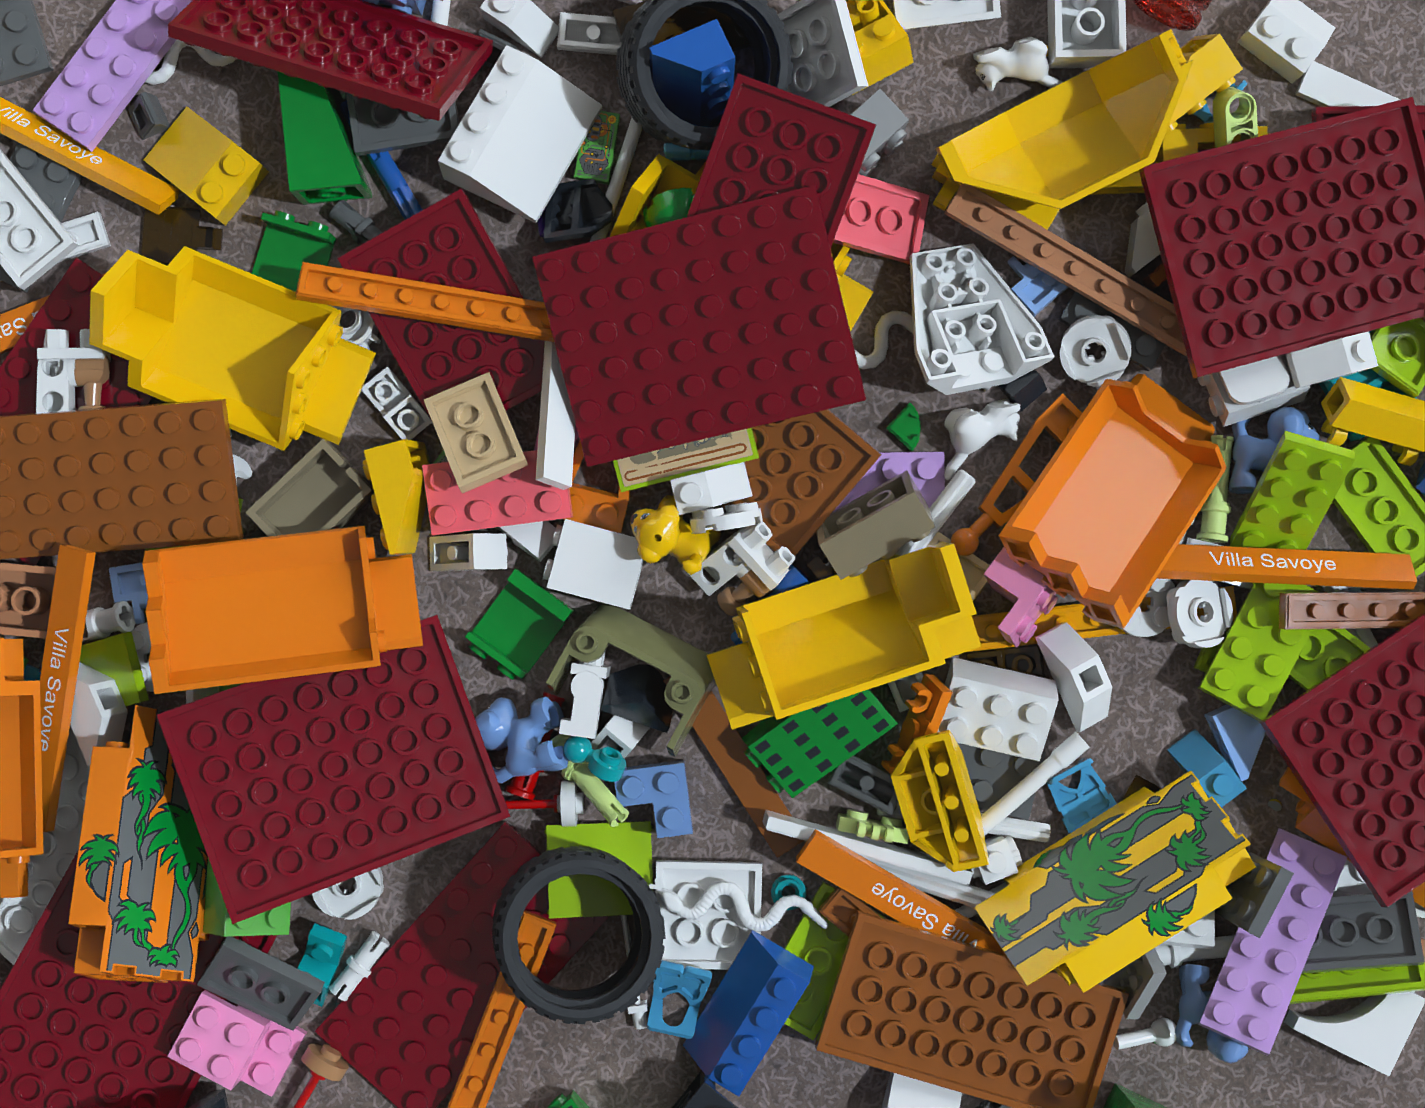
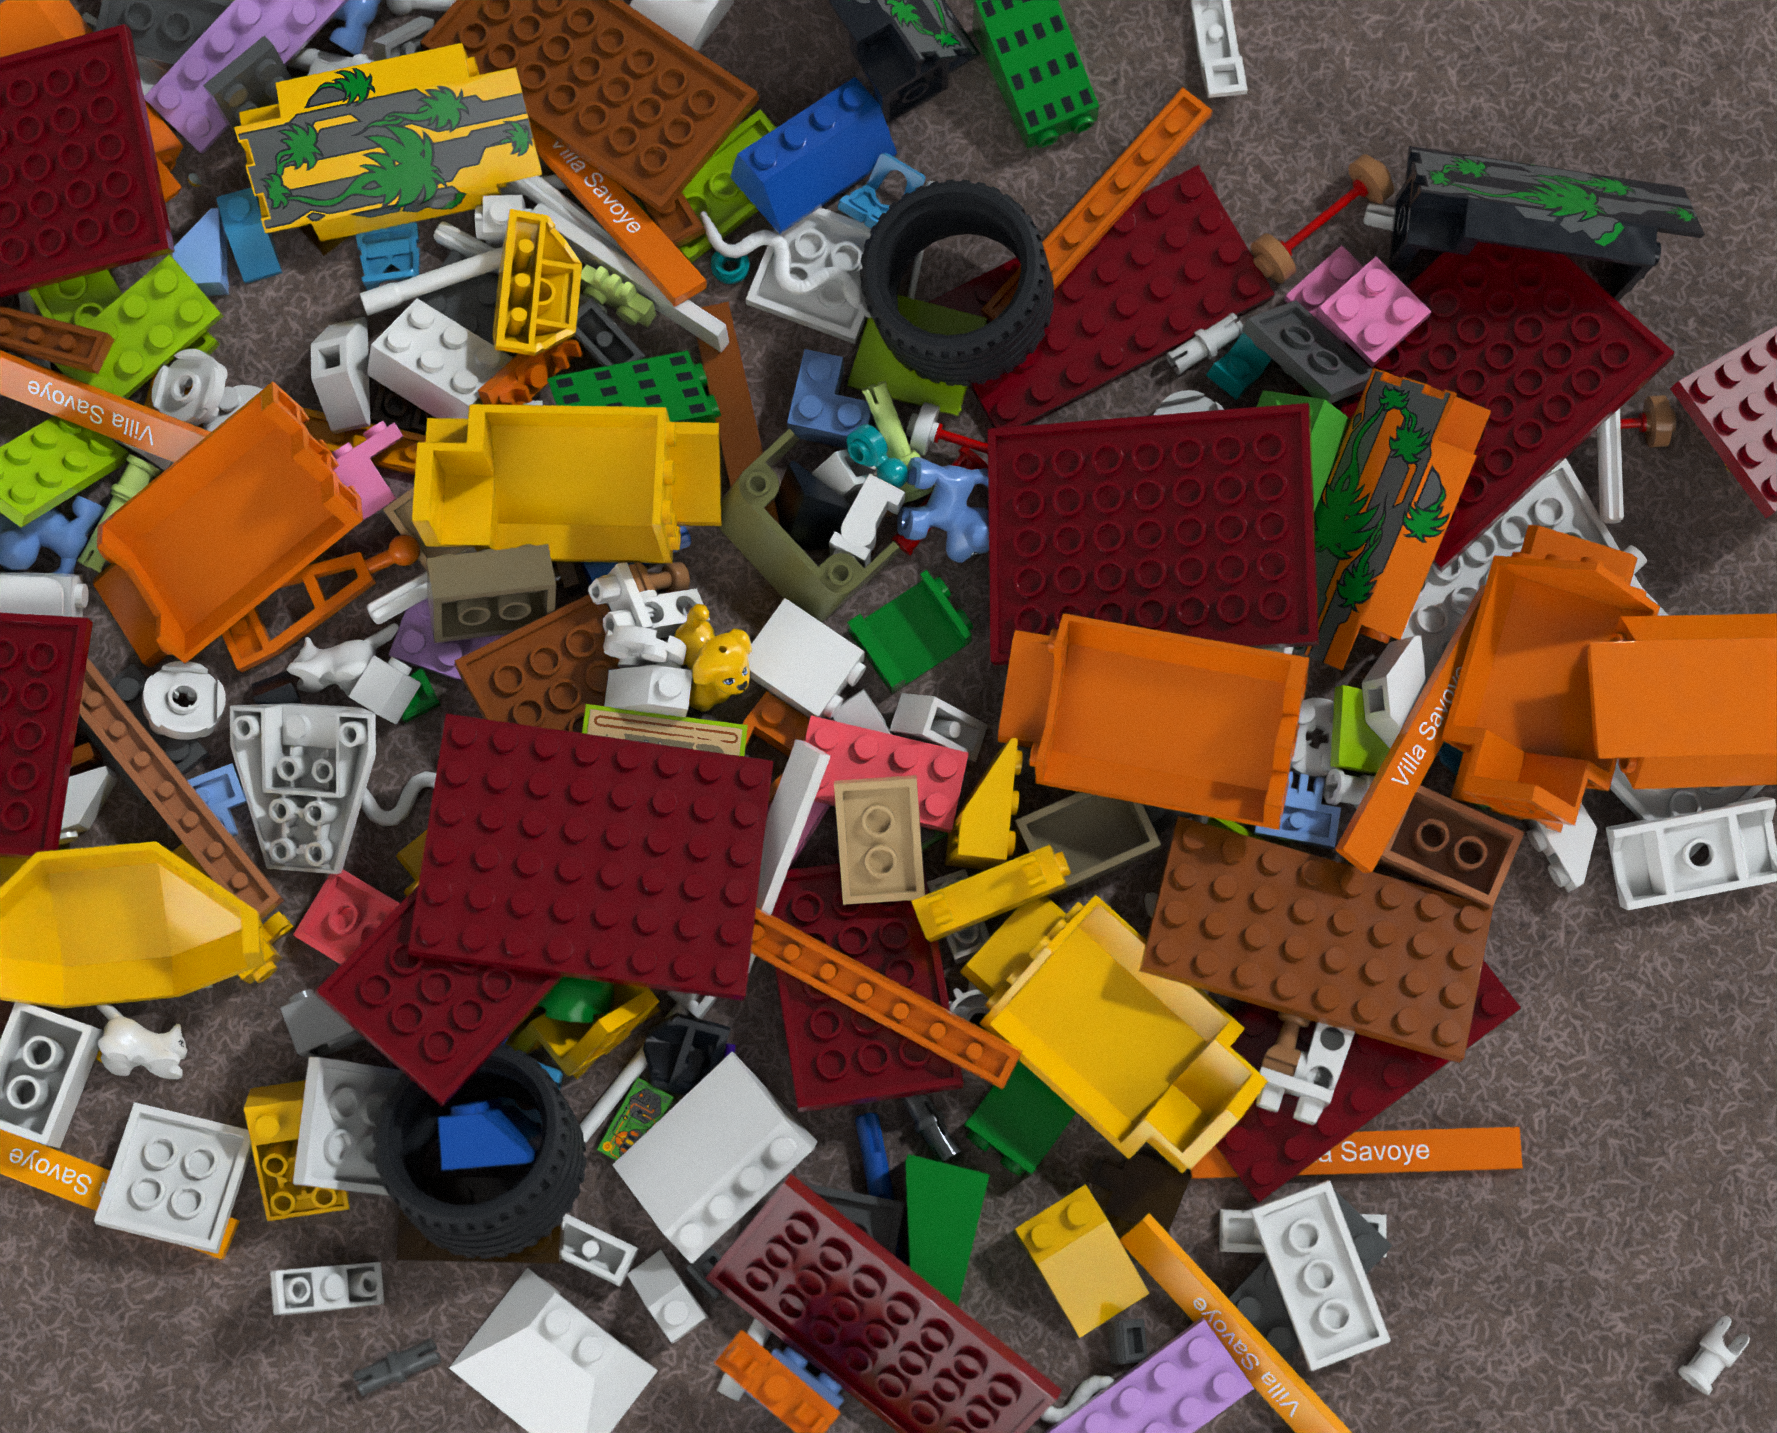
camera: 155 degrees left, 10 degrees down
(367, 420) = (991, 892): none -> yellow brick
(933, 419) = (385, 688): none -> white brick

